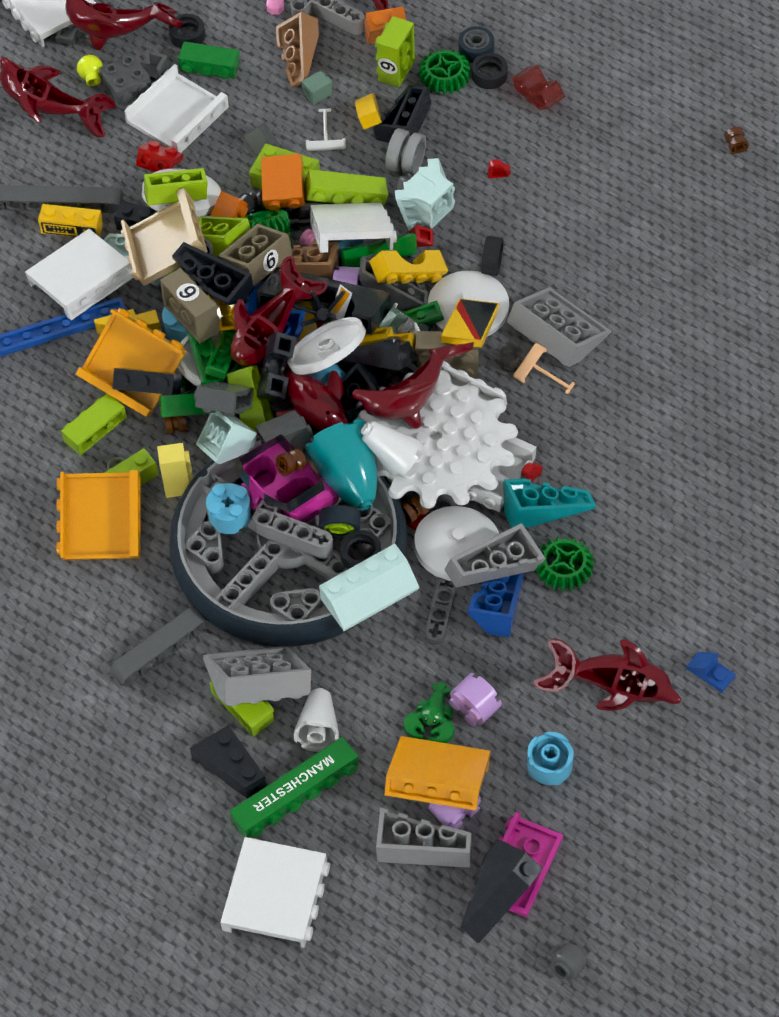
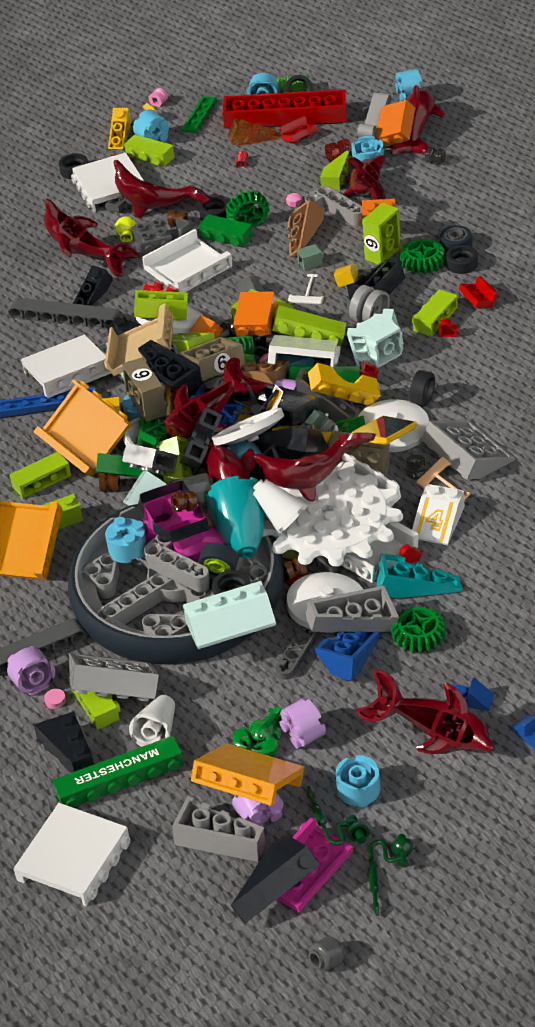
camera: 15 degrees right, 15 degrees down
(69, 220) = (68, 327): yellow brick -> none
(76, 160) = (94, 286): none -> black slope
(144, 47) = (173, 215): none -> reddish brown wheel
(147, 381) = (90, 441): black arch -> none
(163, 679) = (30, 670): none -> lavender brick
(174, 468) = (91, 506): light yellow brick -> none
(196, 706) = (55, 698): none -> bright pink tile
(230, 29) = (245, 206): none -> green gear
(478, 148) = (439, 307): none -> lime brick
(521, 116) = (480, 293): none -> red bracket
(536, 89) = (498, 275): clear red brick -> none
(548, 416) = (438, 513): none -> white slope
(562, 816) = (357, 830): none -> dark green piece
(612, 828) = (401, 848): none -> dark green piece
(644, 635) = (476, 695): none -> blue slope

